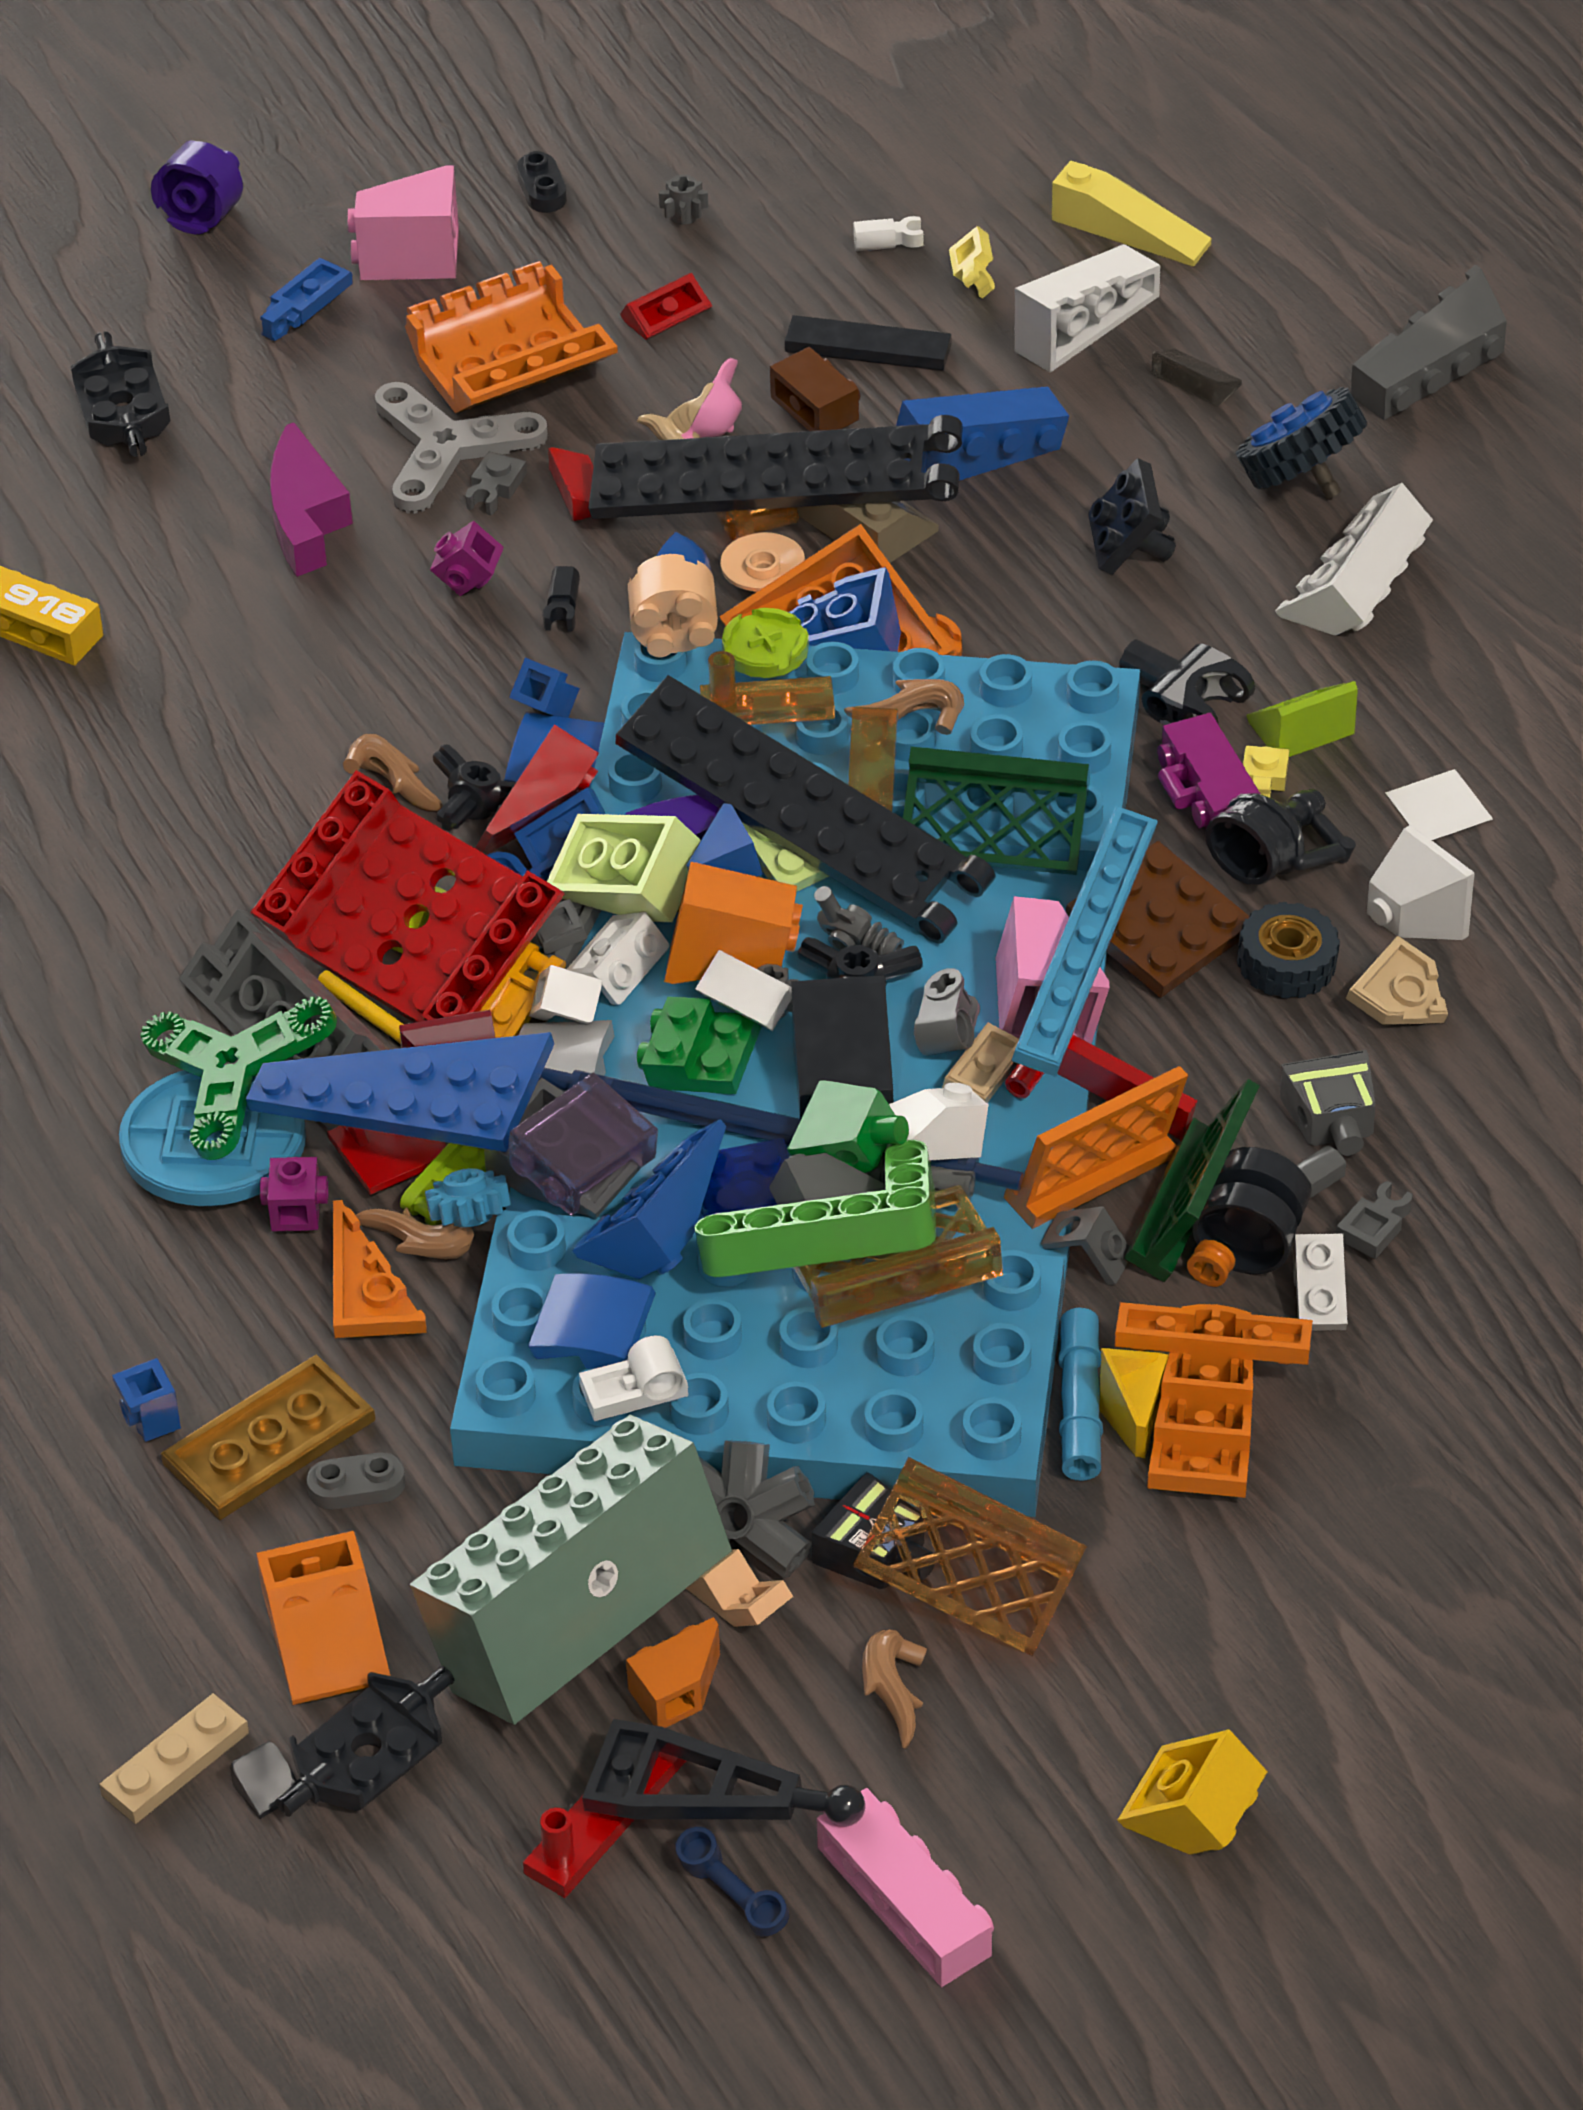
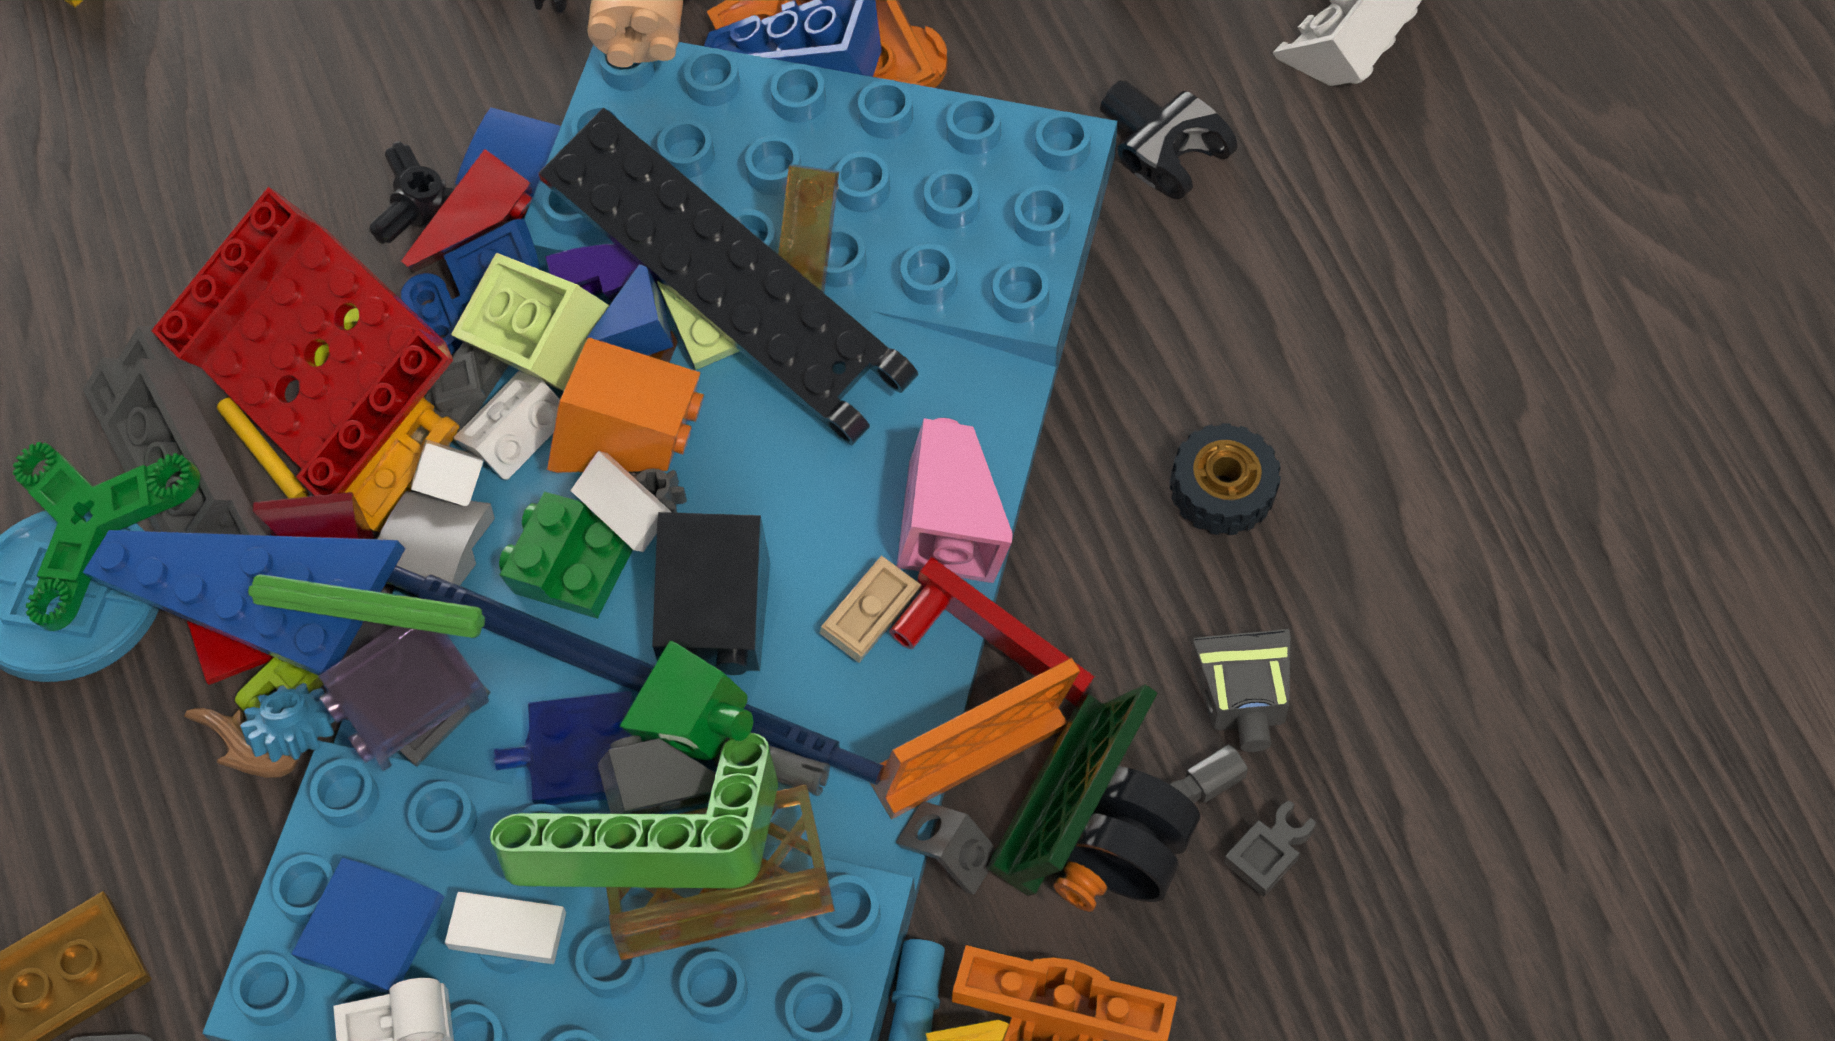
camera: 10 degrees right, 15 degrees up
(290, 1184) = (122, 682): magenta brick -> none
(365, 1291) = (173, 812): orange wing -> none
(378, 755) = (350, 154): medium nougat piece -> none
(540, 1074) = (367, 606): none -> bright green axle
(544, 689) = (511, 85): blue brick -> none
(657, 1213) = (456, 808): blue wedge -> none
(714, 1312) = (505, 927): none -> white tile
(766, 642) = (730, 61): lime tile -> none
(767, 700) = (714, 131): clear orange piece -> none
(852, 925) = (756, 423): dark grey piece -> none
(859, 960) = (750, 480): black bush -> none
(925, 694) = (870, 143): medium nougat piece -> none
(945, 1119) = (795, 702): white slope -> none
(946, 1015) = (837, 552): dark grey piece -> none
(1009, 776) = (943, 252): dark green fence -> none
(1084, 941) = (990, 487): dark azure tile -> none
(1171, 922) = (1092, 425): reddish brown plate -> none
(1203, 761) = (1180, 259): magenta piece -> none
(1266, 839) = (1218, 336): black piece -> none
(1267, 768) = (1232, 248): light yellow plate -> none
(1308, 719) = (1285, 188): lime slope -> none
(1320, 1280) = (1196, 930): white plate -> none
(1400, 987) = (1339, 541): tan plate -> none
(1421, 890) = (1376, 424): white slope -> none
(1439, 805) = (1412, 306): white sticker -> none

